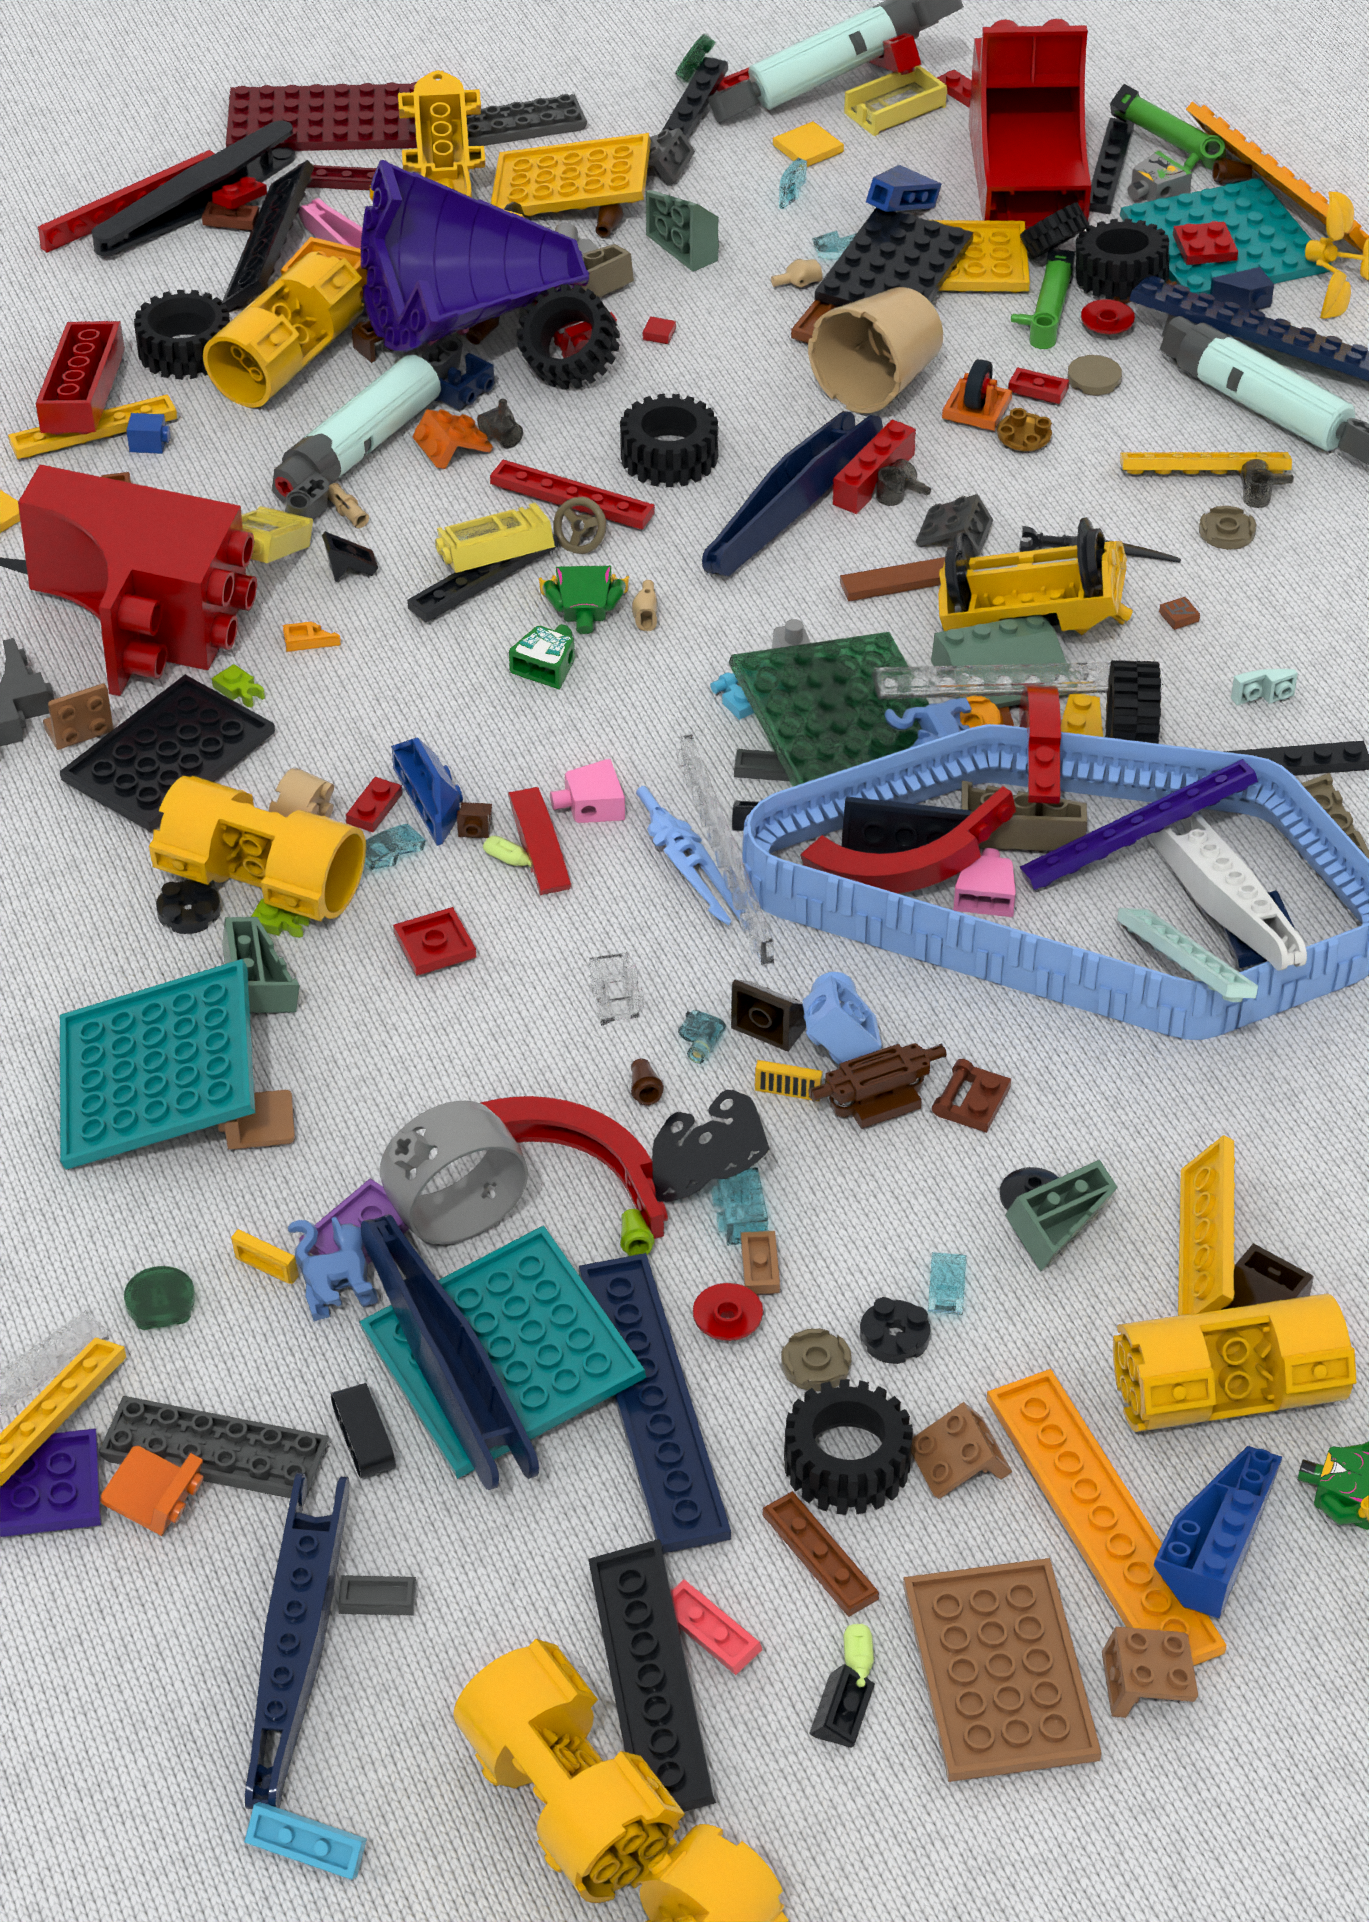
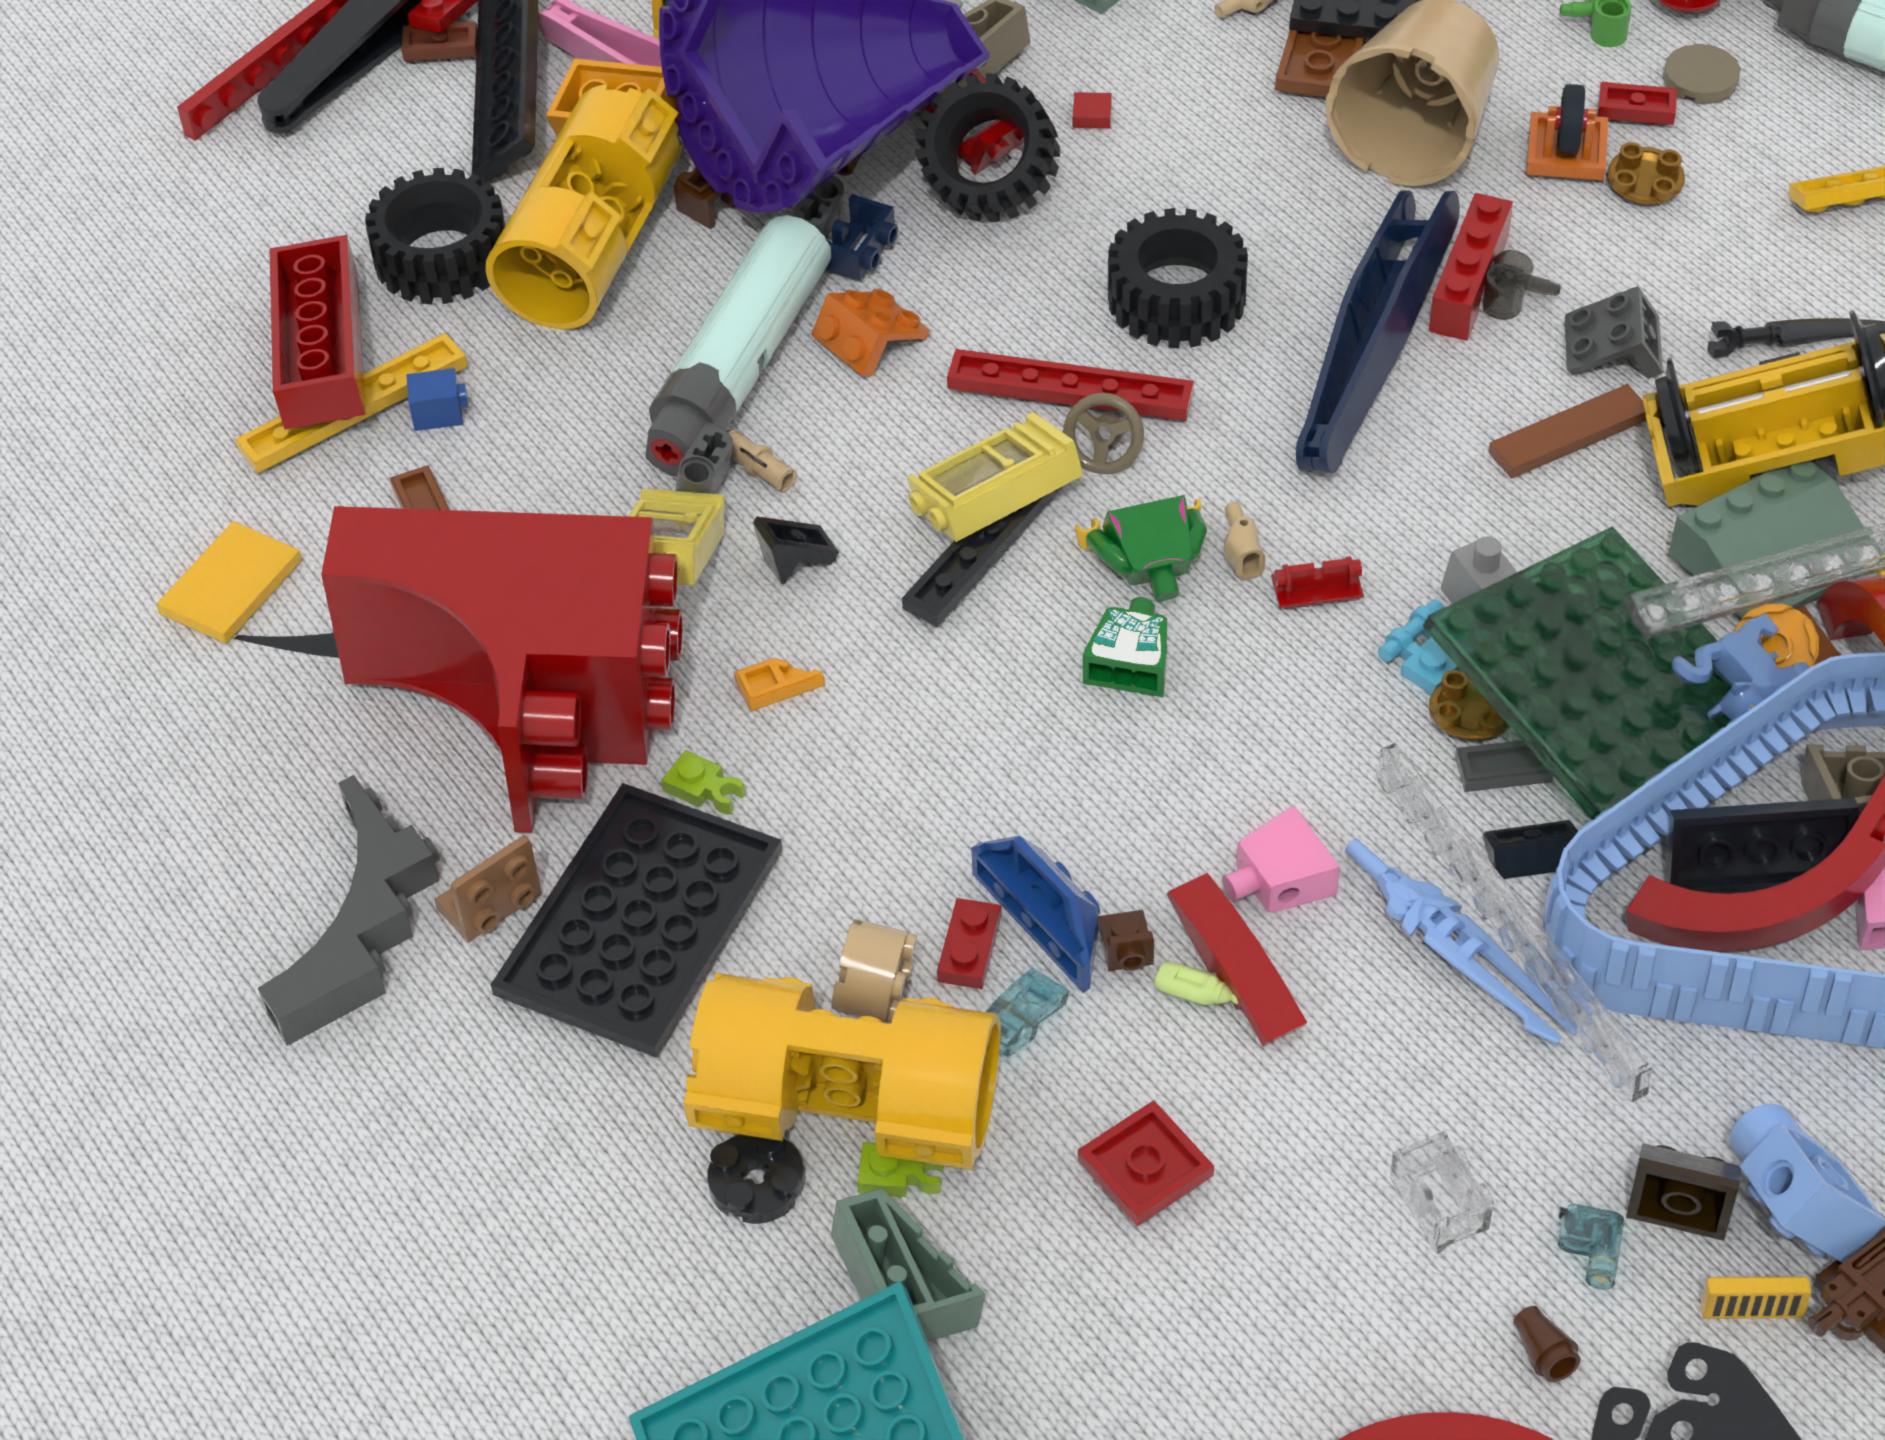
camera: 10 degrees left, 5 degrees up
(500, 425) = (932, 296): clear smoke piece -> none
(674, 637) = (1310, 585): none -> red hinge
(747, 729) = (1463, 710): none -> pearl gold dish

